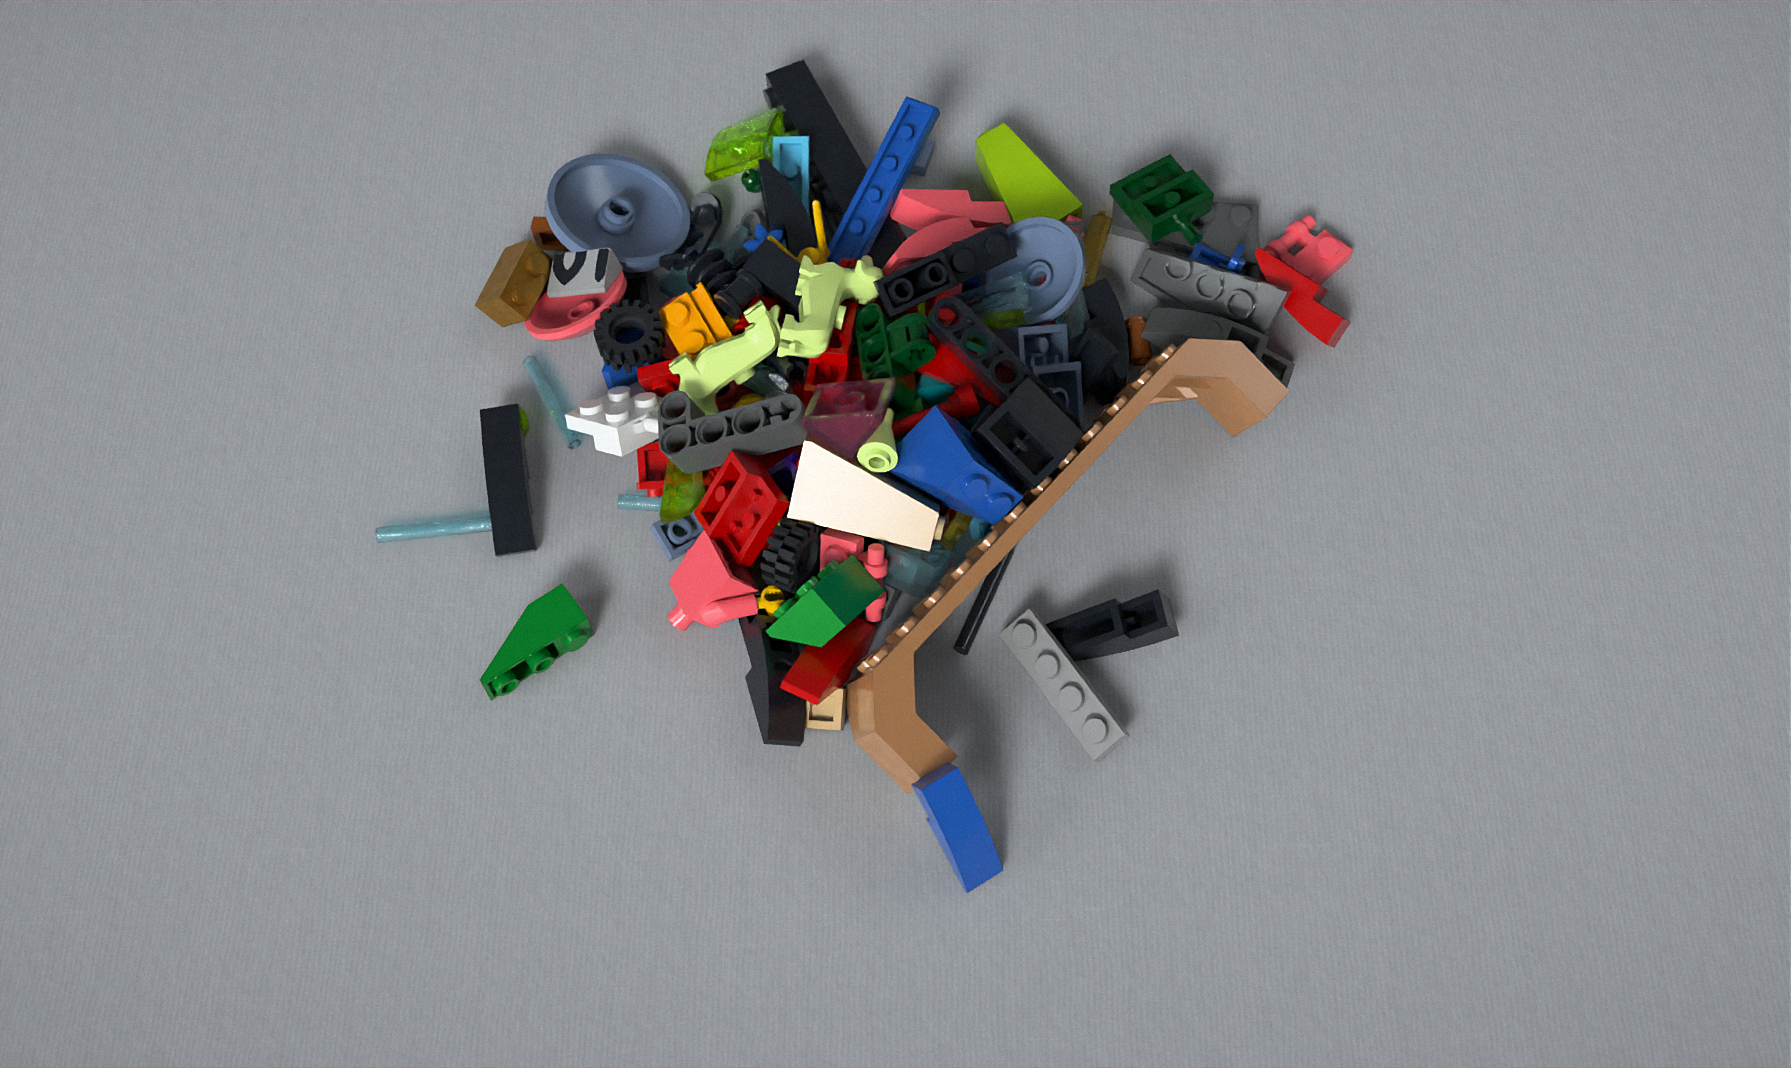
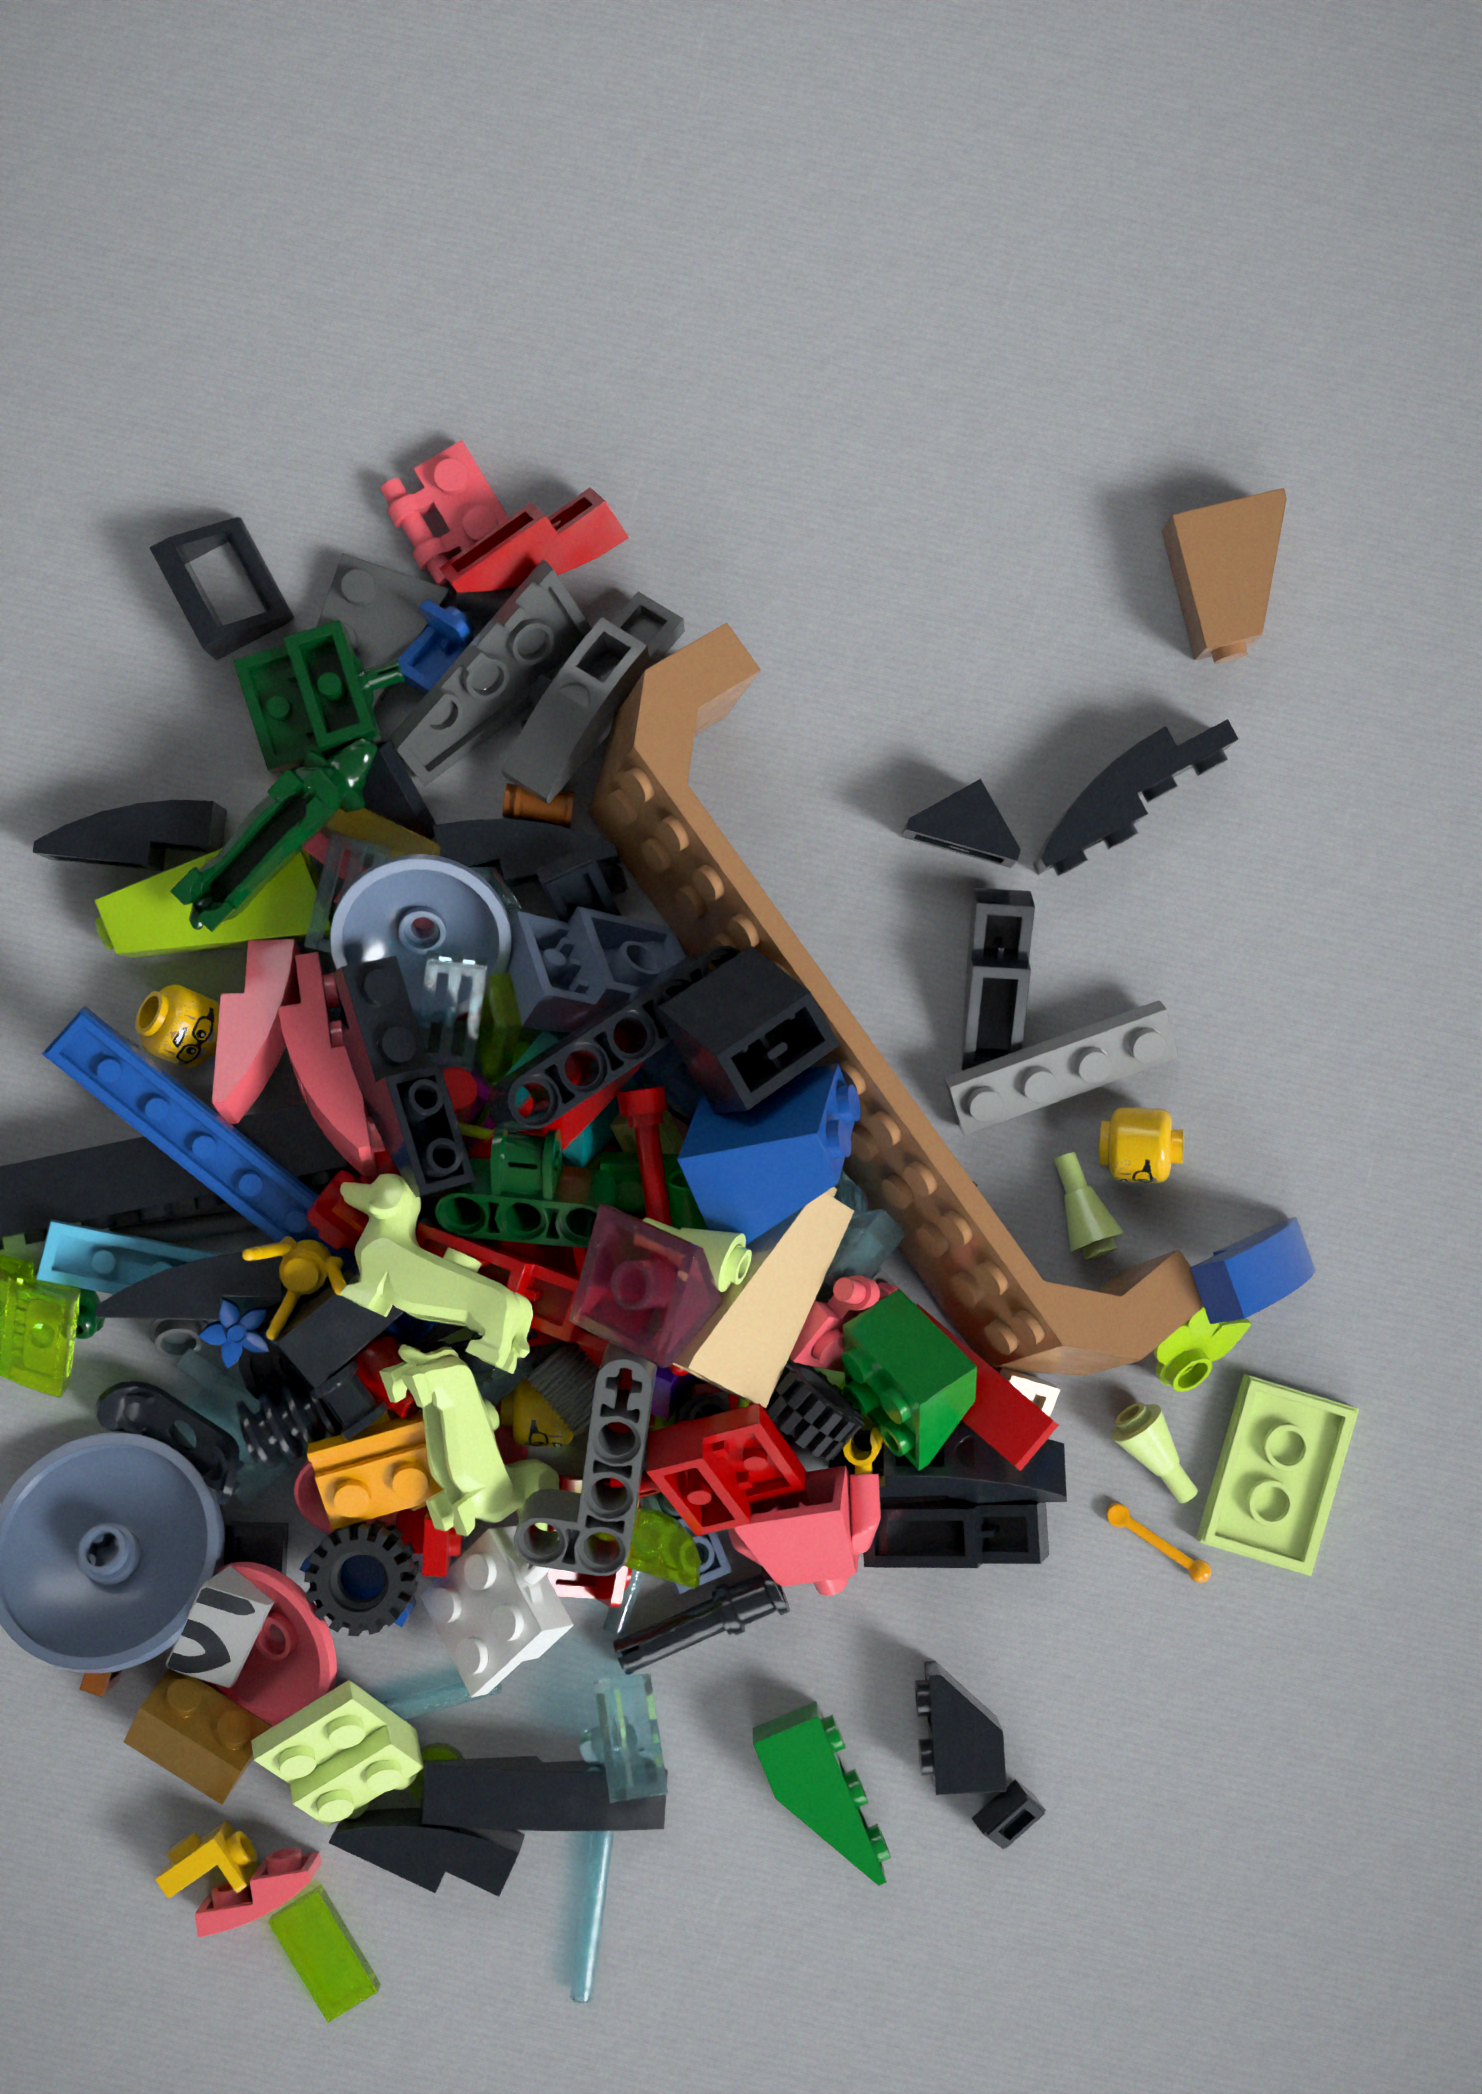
camera: 80 degrees left, 25 degrees up
(387, 388) = (324, 1953): none -> clear neon green tile
(423, 340) = (270, 1887): none -> coral slope
(442, 308) = (196, 1856): none -> yellow bracket
(462, 428) = (424, 1852): none -> black slope
(517, 356) = (340, 1753): none -> yellowish green plate
(538, 763) = (1009, 1814): none -> black tile
(553, 515) = (626, 1738): none -> clear light blue tile
(589, 719) = (963, 1735): none -> black slope
(645, 559) = (726, 1611): none -> black pin
(727, 690) = (958, 1535): none -> black slope
(760, 798) = (1119, 1516): none -> light orange hinge
(813, 899) = (1277, 1474): none -> yellowish green tile
(817, 800) = (1147, 1438): none -> yellowish green cone
(898, 811) = (1189, 1351): none -> lime plate
(942, 175) = (179, 1025): none -> yellow head
(962, 725) = (1088, 1220): none -> yellowish green cone
(1024, 743) = (1140, 1144): none -> yellow head
(1051, 139) = (137, 834): none -> black slope
(1075, 189) = (276, 832): none -> dark green animal
(1122, 256) = (393, 794): none -> black tile
(1204, 134) = (174, 561): none -> black tile
(1212, 584) = (966, 825): none -> black slope
(1257, 670) = (1112, 800): none -> black slope
(1449, 711) = (1225, 571): none -> medium nougat slope

